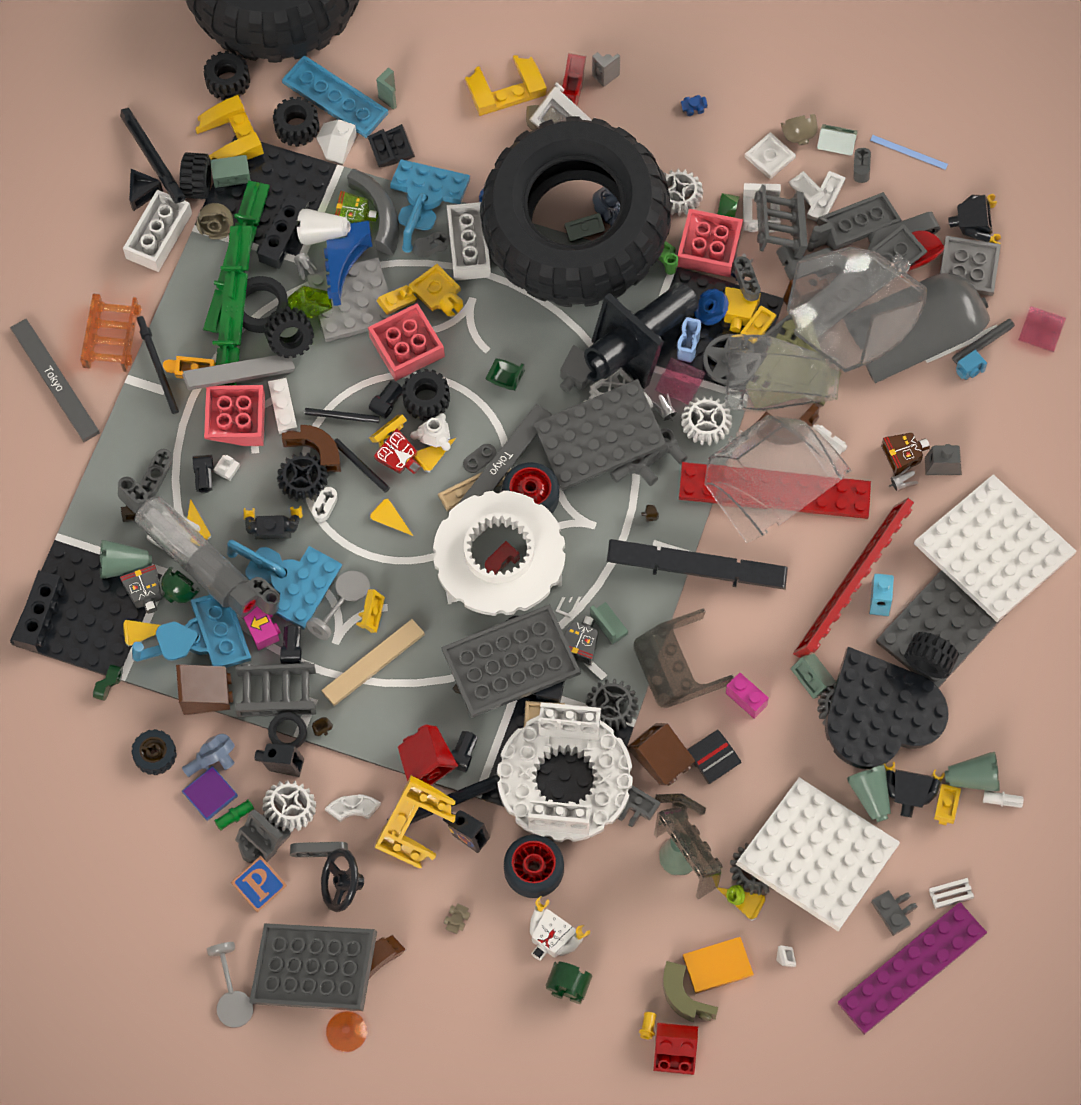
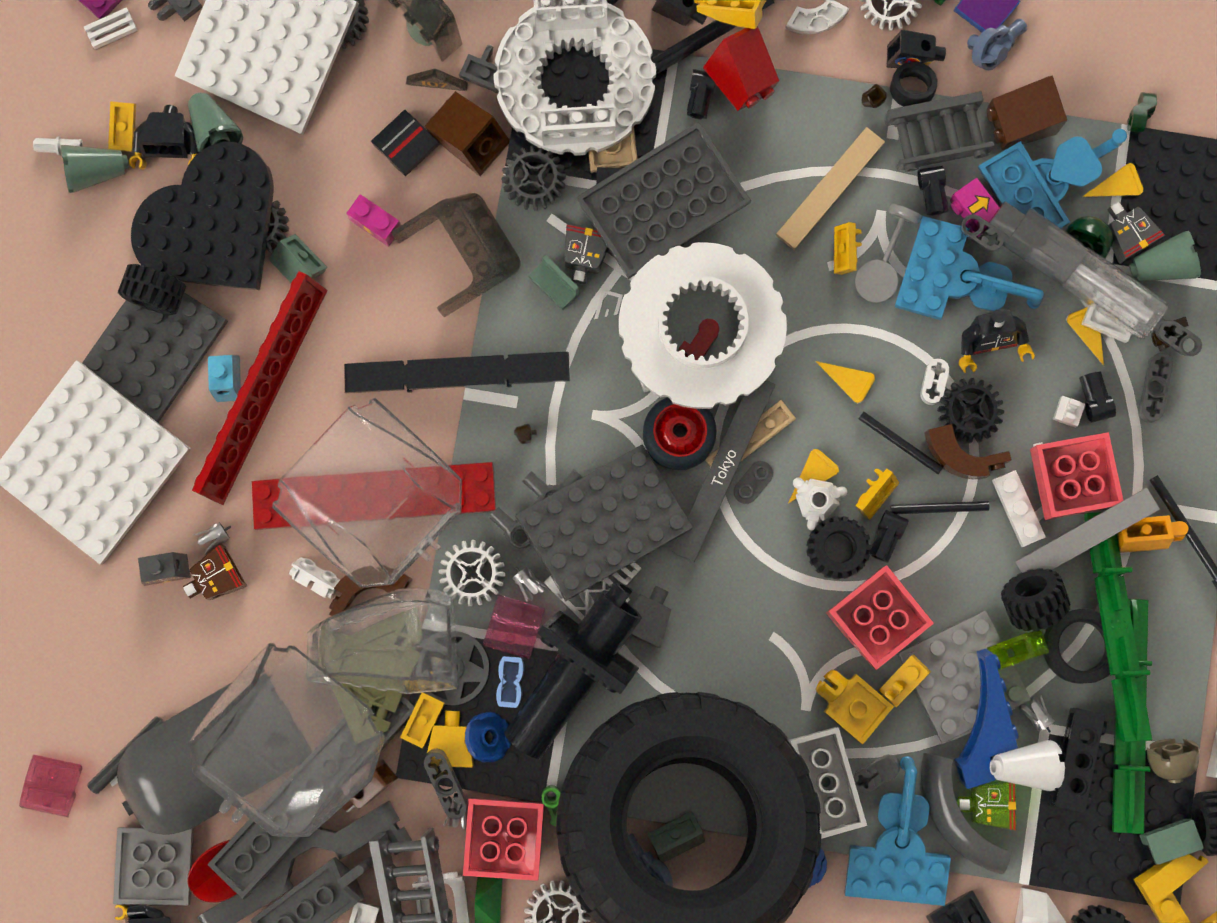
camera: 170 degrees right, 15 degrees up
(160, 760) = (1052, 46): black wheel -> none
(398, 454) = (857, 458): red torso -> none
(505, 374) = (742, 595): dark green piece -> none
(971, 365) = (139, 713): dark azure brick -> none

